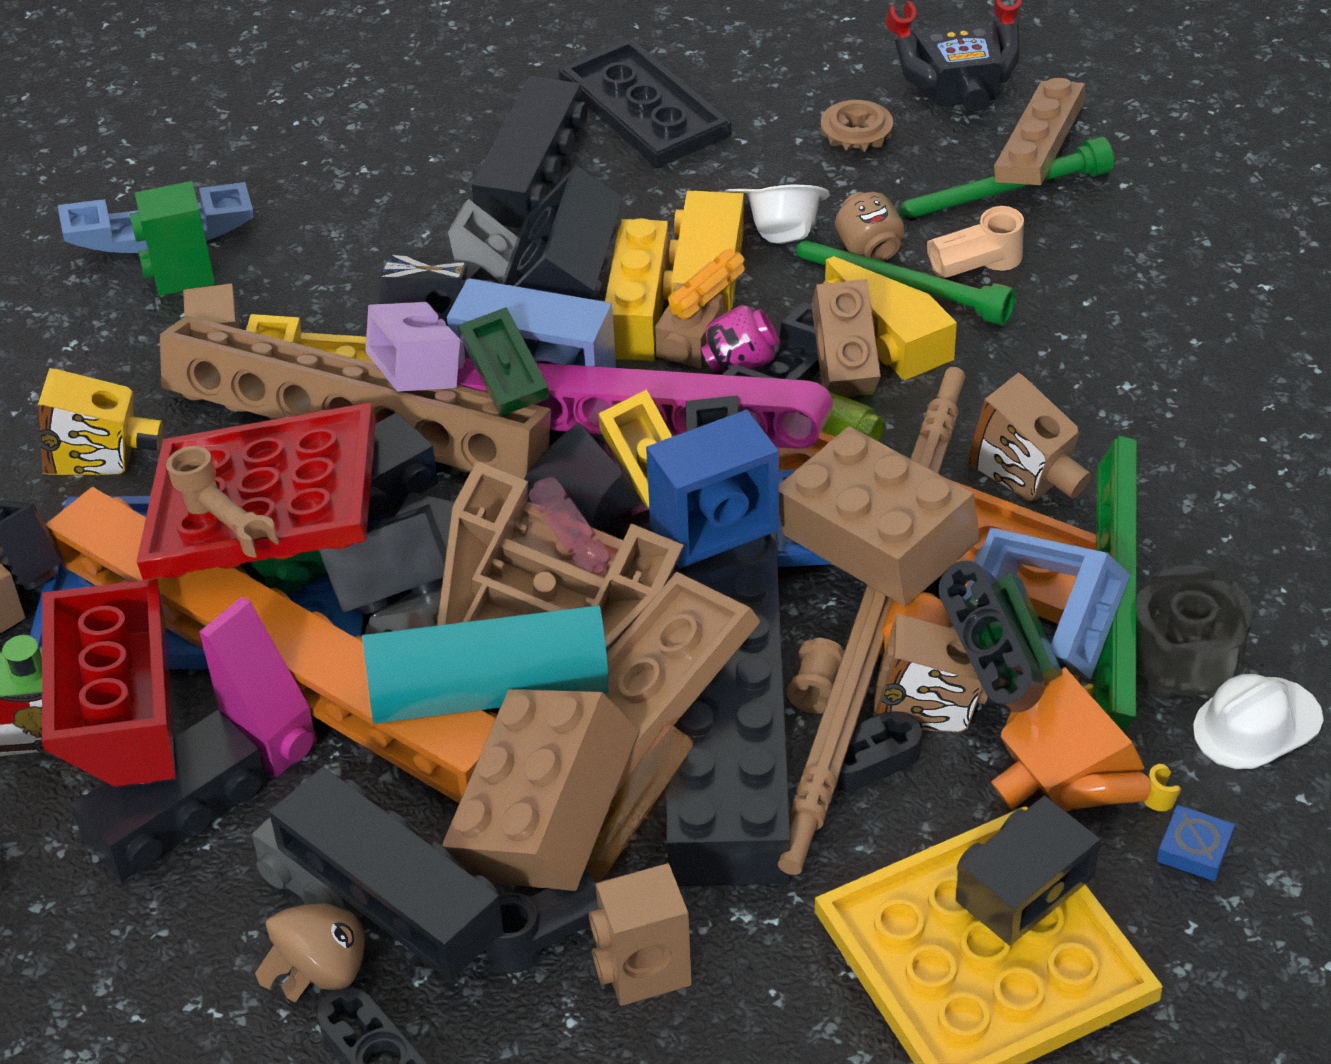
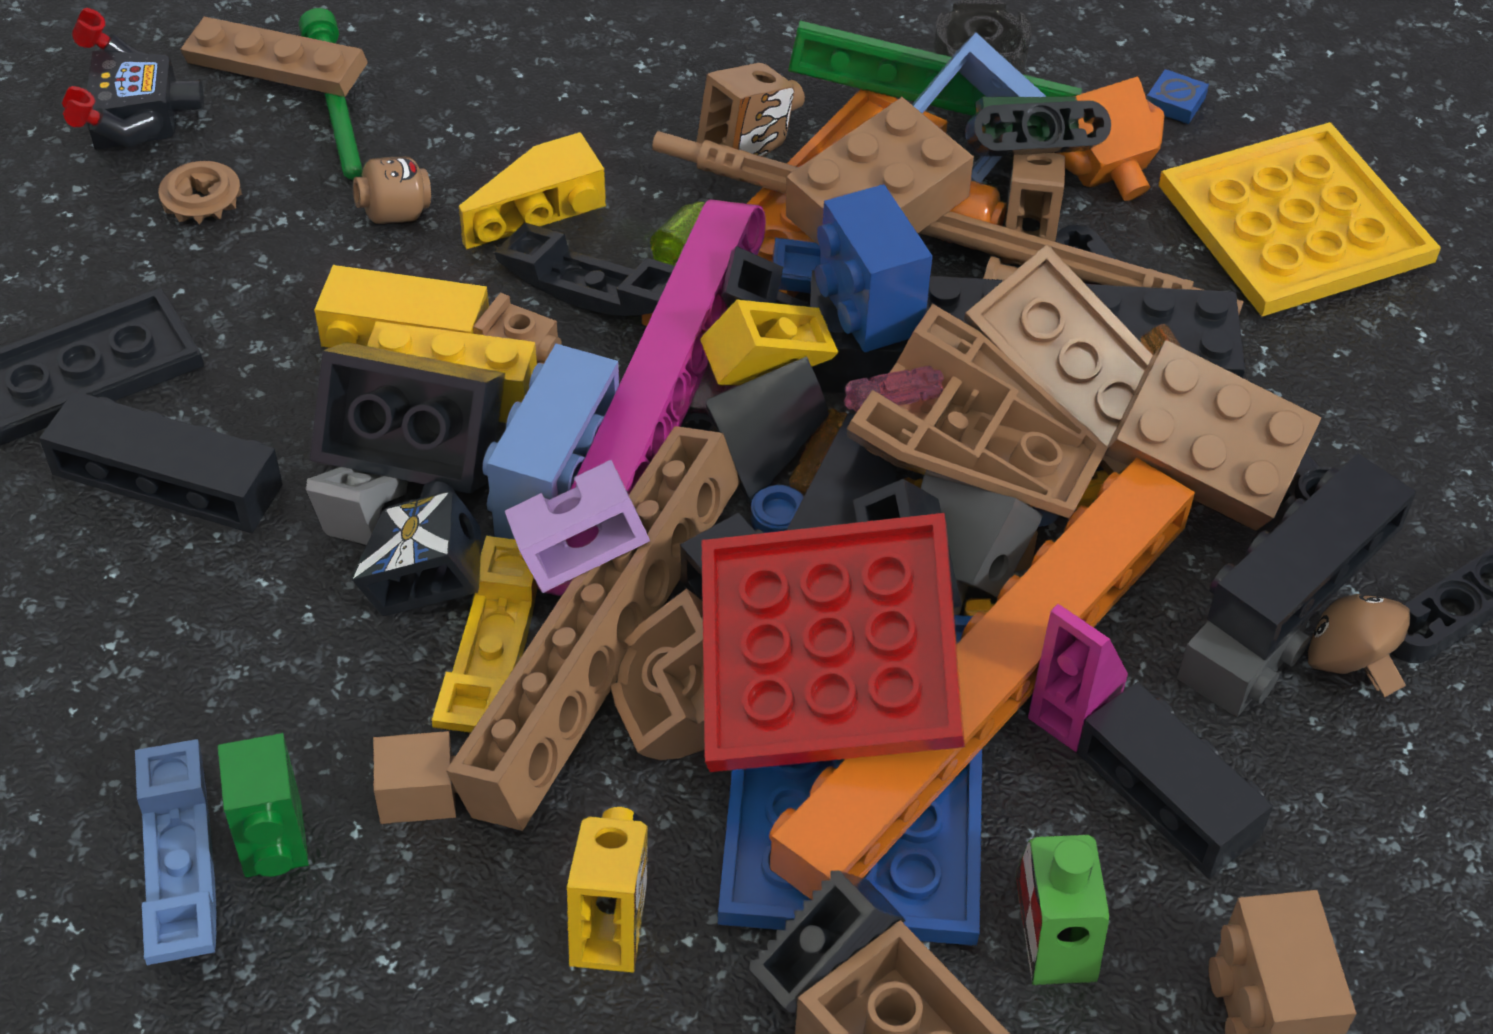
camera: 90 degrees left, 5 degrees up
(108, 682) = (1092, 773): red slope -> none
(194, 476) = (866, 656): medium nougat brick -> none
(478, 661) = (1089, 455): teal brick -> none
(503, 361) = (635, 434): dark green plate -> none
(641, 935) = (1344, 387): medium nougat brick -> none
(706, 284) = (496, 294): light orange axle -> none
(741, 339) = (565, 291): dark pink head -> none
(784, 211) = (352, 242): white piece -> none
(845, 338) = (592, 208): medium nougat brick -> none
(992, 243) = (441, 118): light nougat piece -> none
(992, 302) = (522, 124): green piece -> none
(1026, 869) = (1251, 162): black brick -> none
(1256, 721) = (1059, 48): white piece -> none

